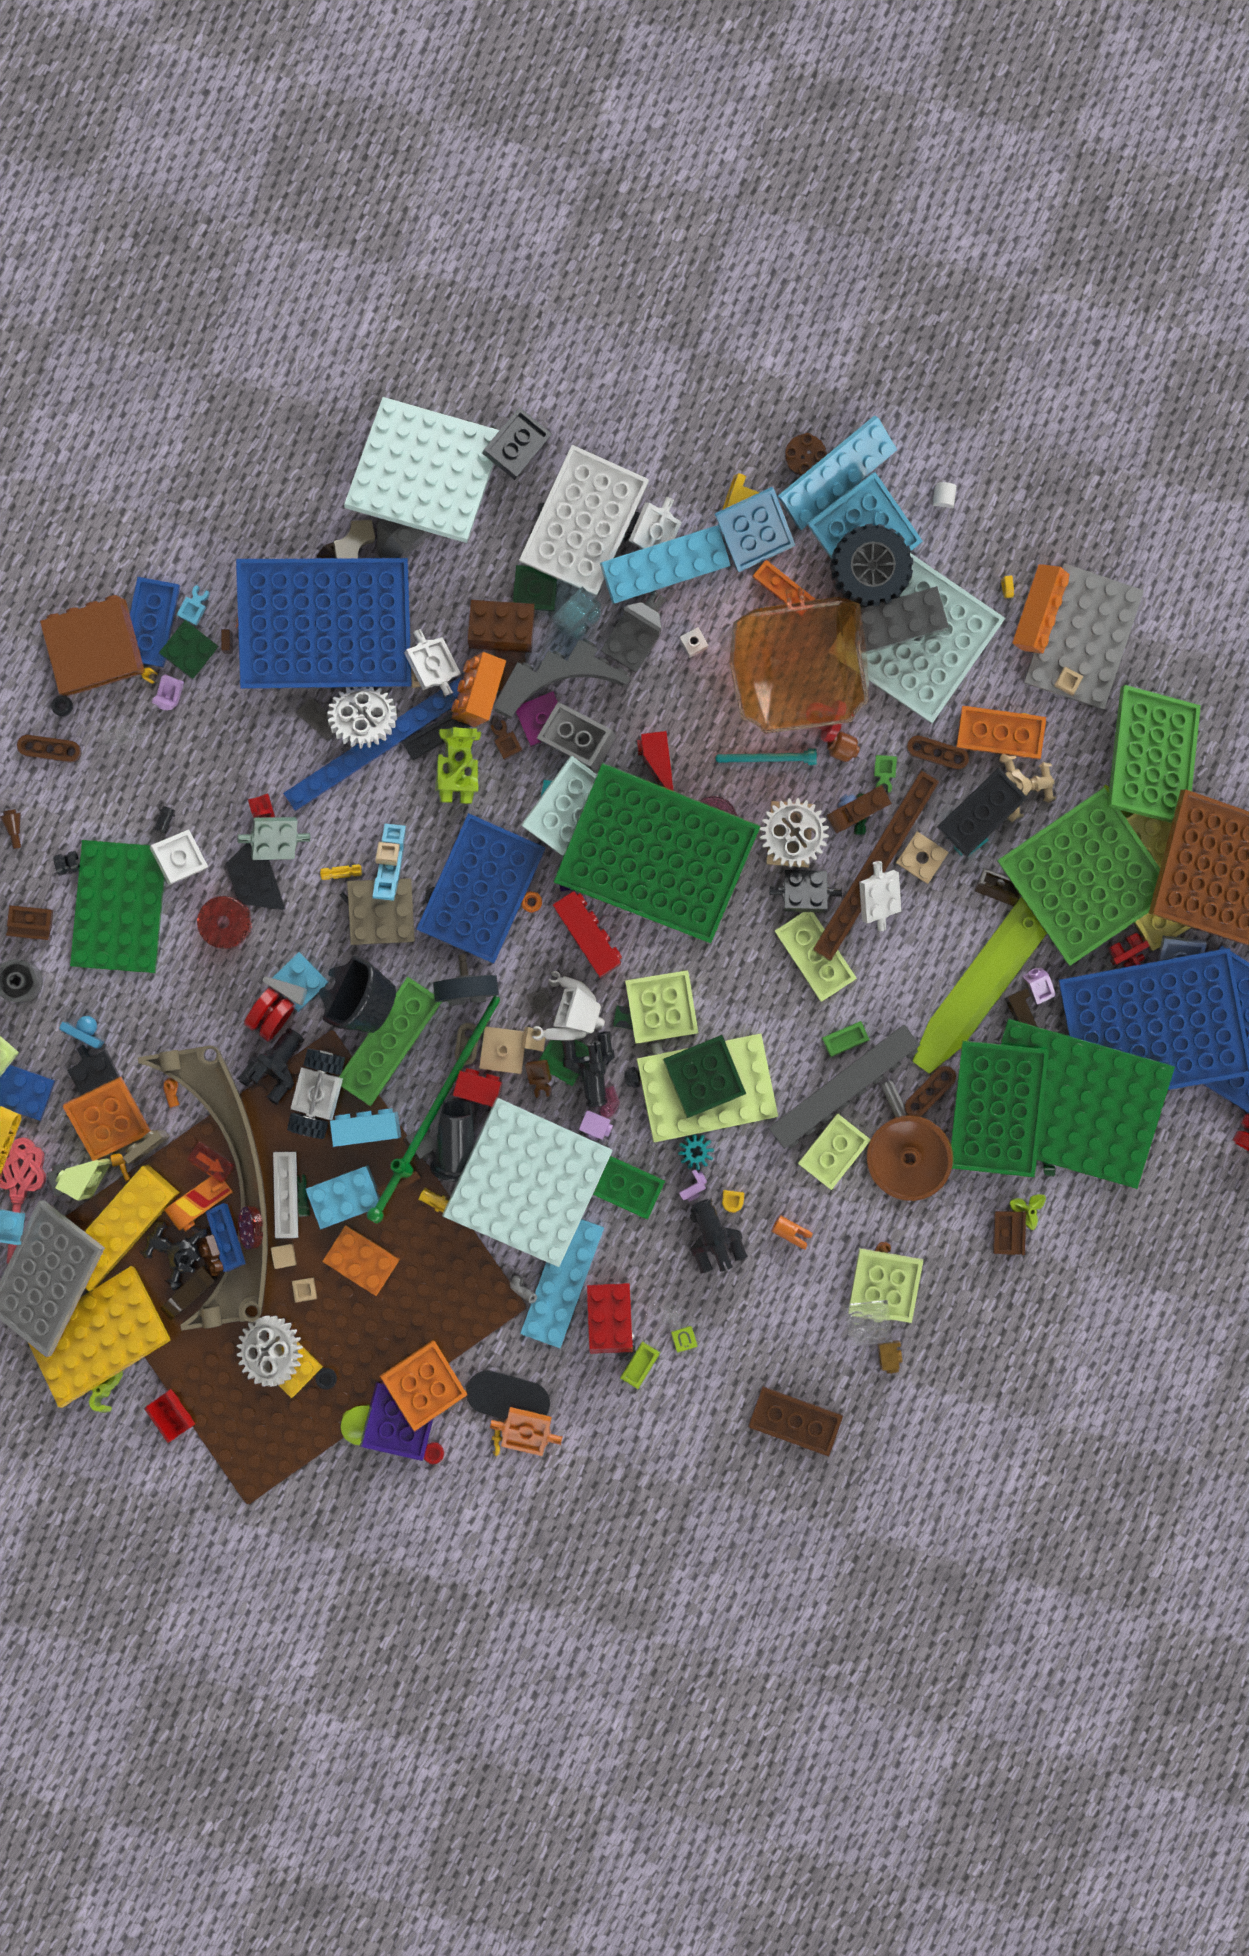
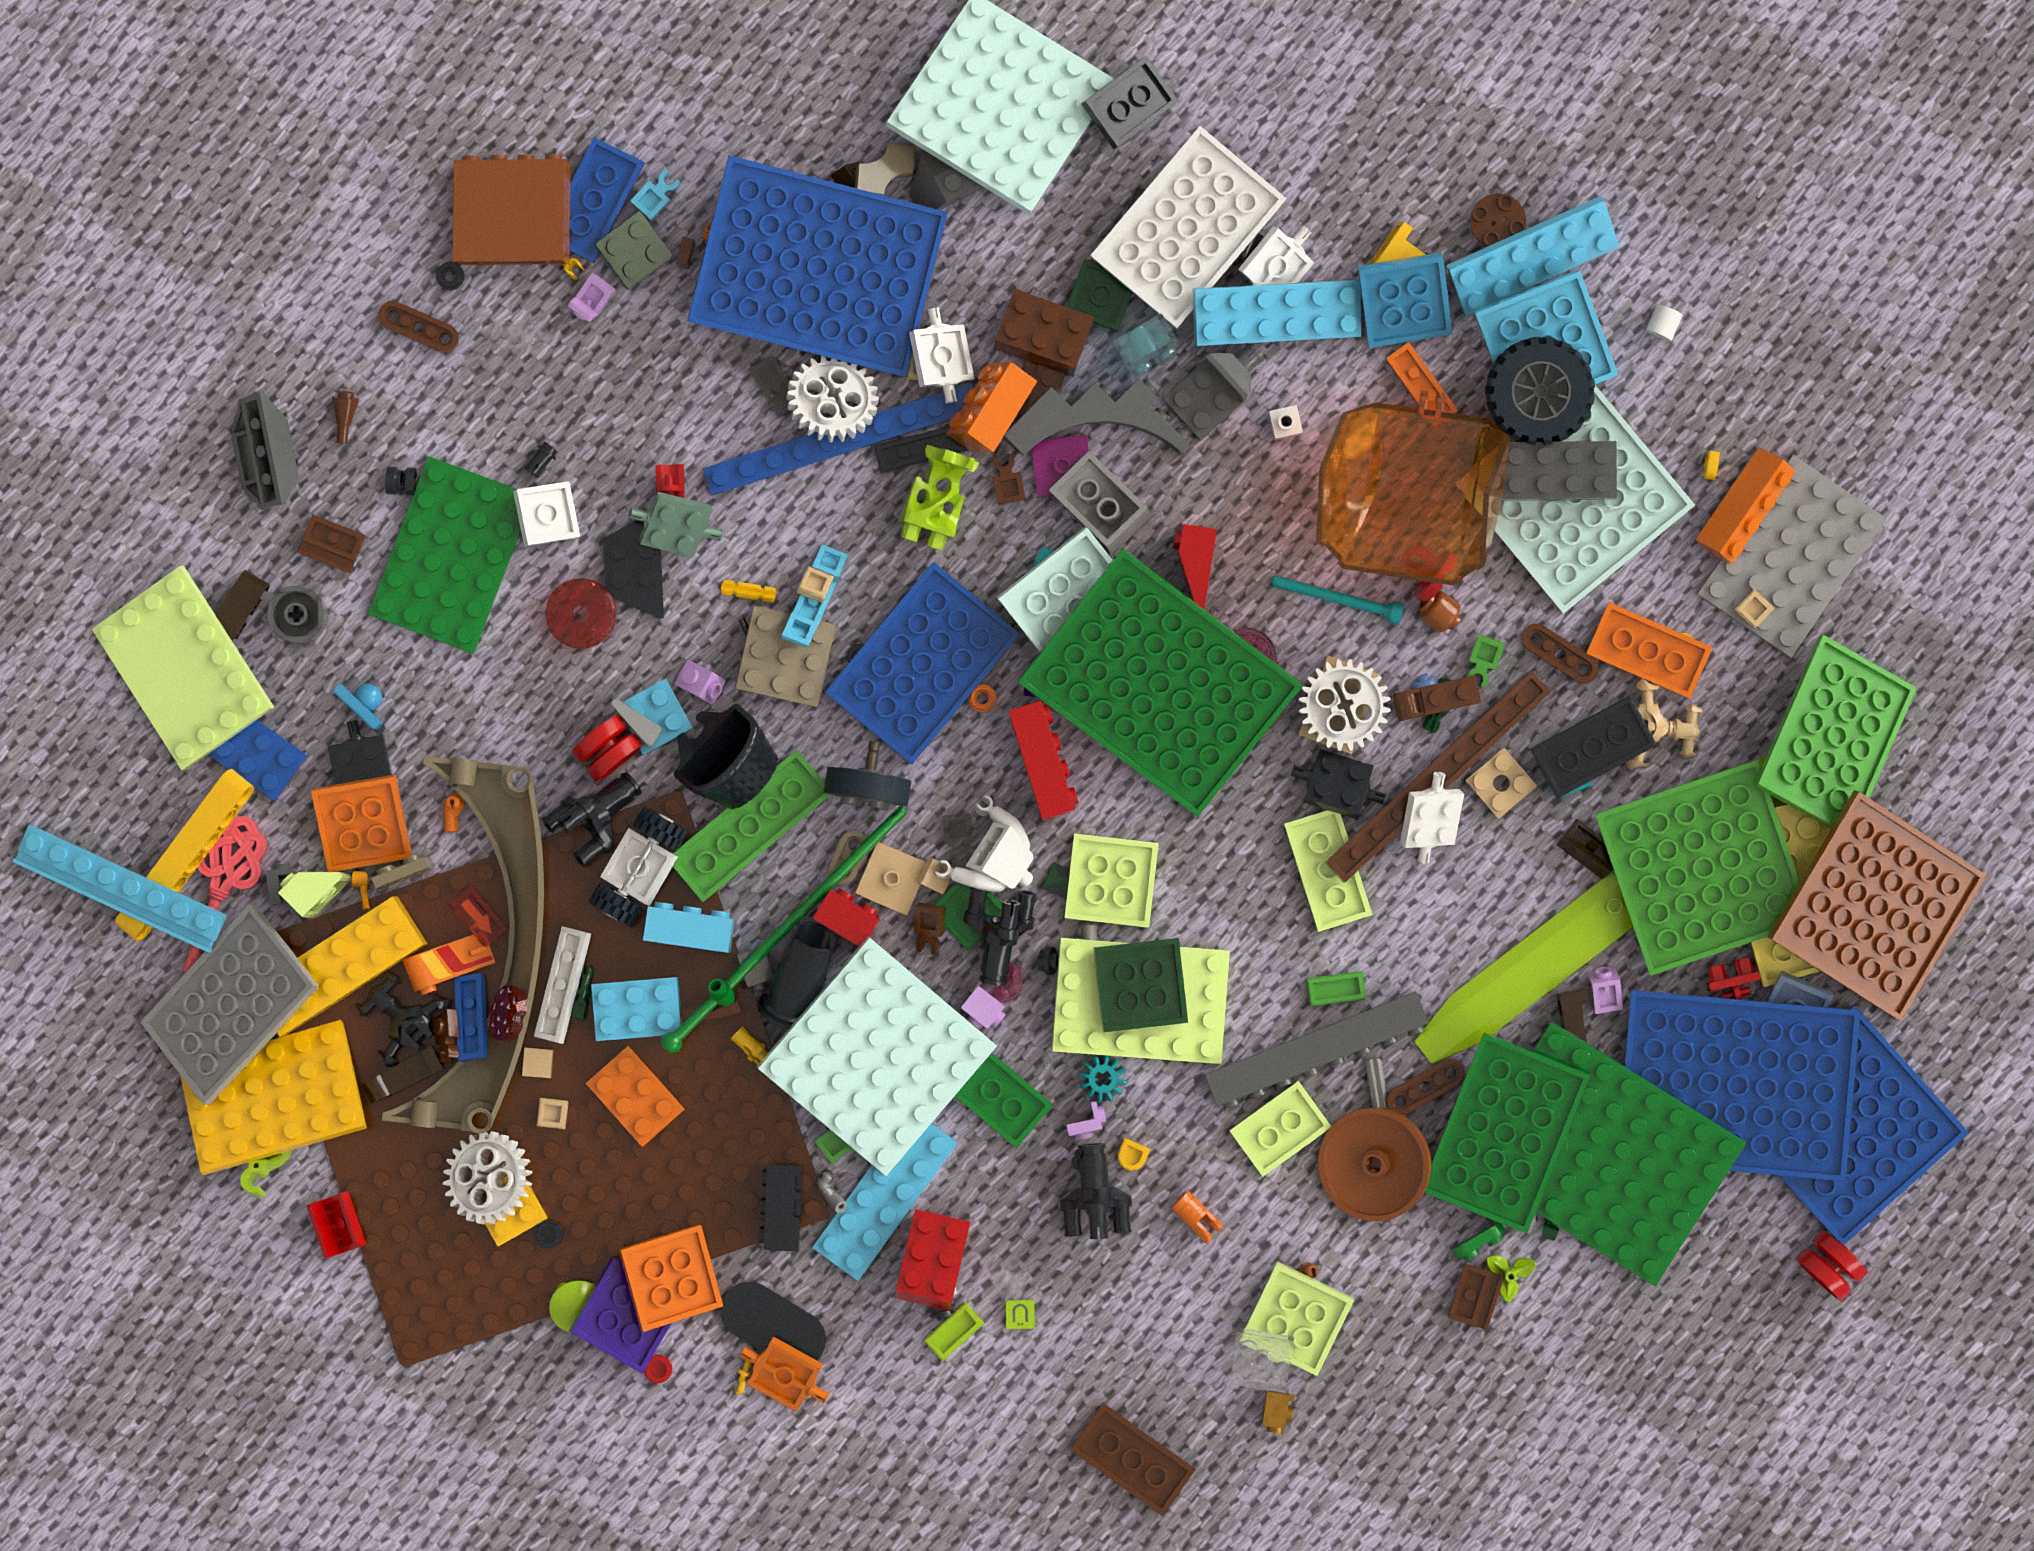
camera: 20 degrees right, 0 degrees up
(324, 947) = (700, 682): none -> lavender bracket
(489, 1311) = (781, 1207): none -> black wedge
(514, 1256) = (832, 1146): none -> bright green plate
(995, 1199) = (1469, 1248): none -> green plate

